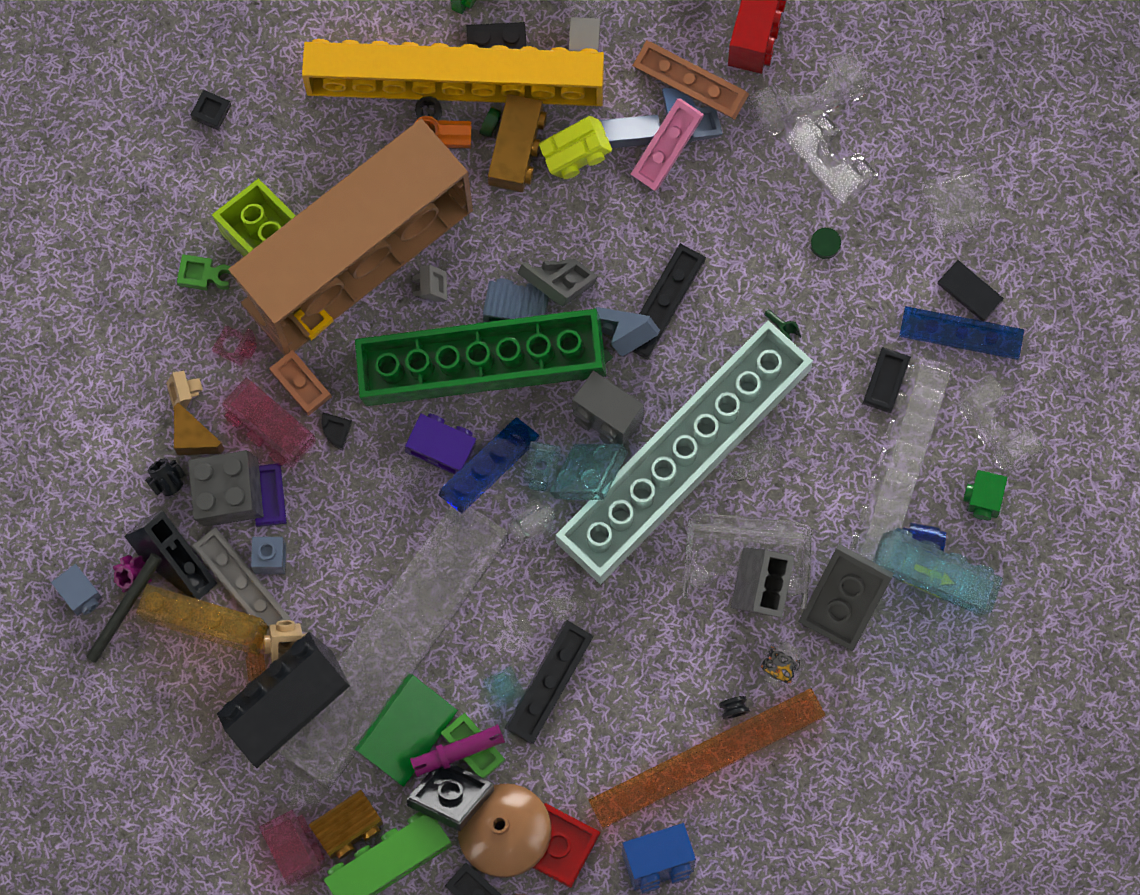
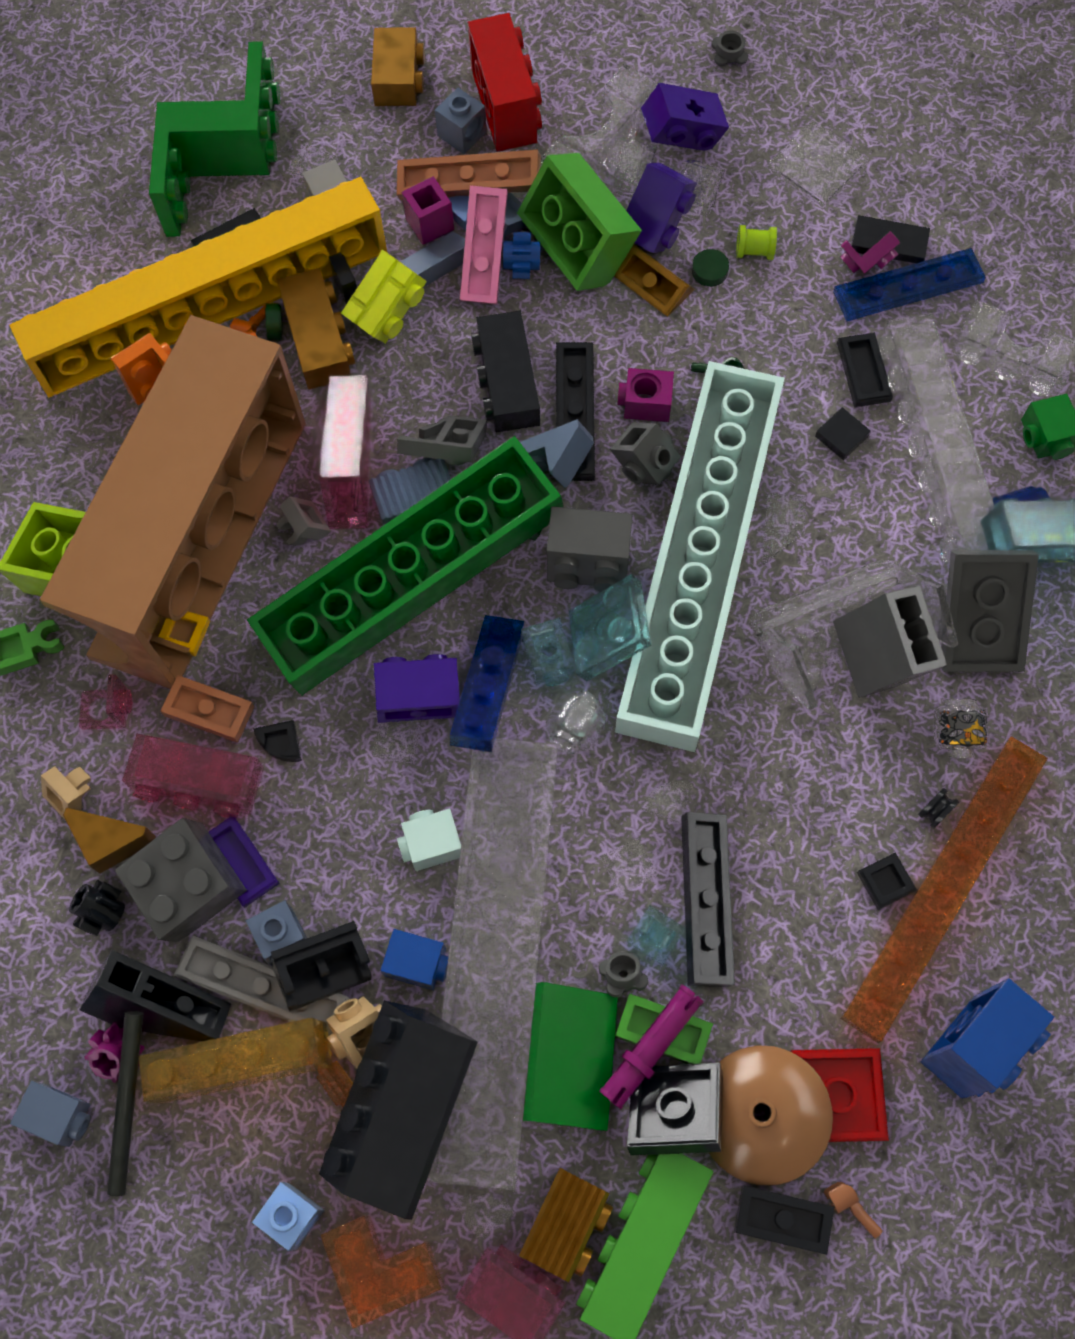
camera: 30 degrees left, 5 degrees down
(186, 728) = (288, 1216): none -> light blue brick
(215, 793) = (368, 1280): none -> clear orange brick
(284, 590) = (321, 966): none -> black hinge
(343, 618) = (415, 960): none -> blue brick
(382, 117) = (141, 365): none -> orange bracket
(395, 547) = (429, 839): none -> light aqua brick
(466, 114) = (252, 324): none -> orange hand
(468, 691) = (620, 963): none -> dark grey plate
(487, 249) = (346, 452): none -> clear pink slope
(557, 114) = (343, 276): none -> black tile
(630, 247) = (506, 371): none -> black brick
(644, 94) = (428, 210): none -> magenta brick
(672, 735) = (886, 881): none -> black tile
(689, 362) = (645, 453): none -> dark grey brick
(692, 163) = (521, 255): none -> blue gear
(711, 30) = (460, 120): none -> sand blue brick
(723, 330) = (651, 382): none -> magenta brick
(743, 162) = (578, 221): none -> bright green brick
(779, 230) = (652, 281): none -> pearl gold slope
(807, 181) = (659, 205): none -> dark purple brick
(840, 419) = (842, 433): none -> black tile
(869, 242) = (756, 242): none -> lime bush
(874, 117) = (684, 117): none -> dark purple brick
(933, 299) = (880, 254): none -> magenta bracket
(954, 64) = (729, 40): none -> dark grey plate

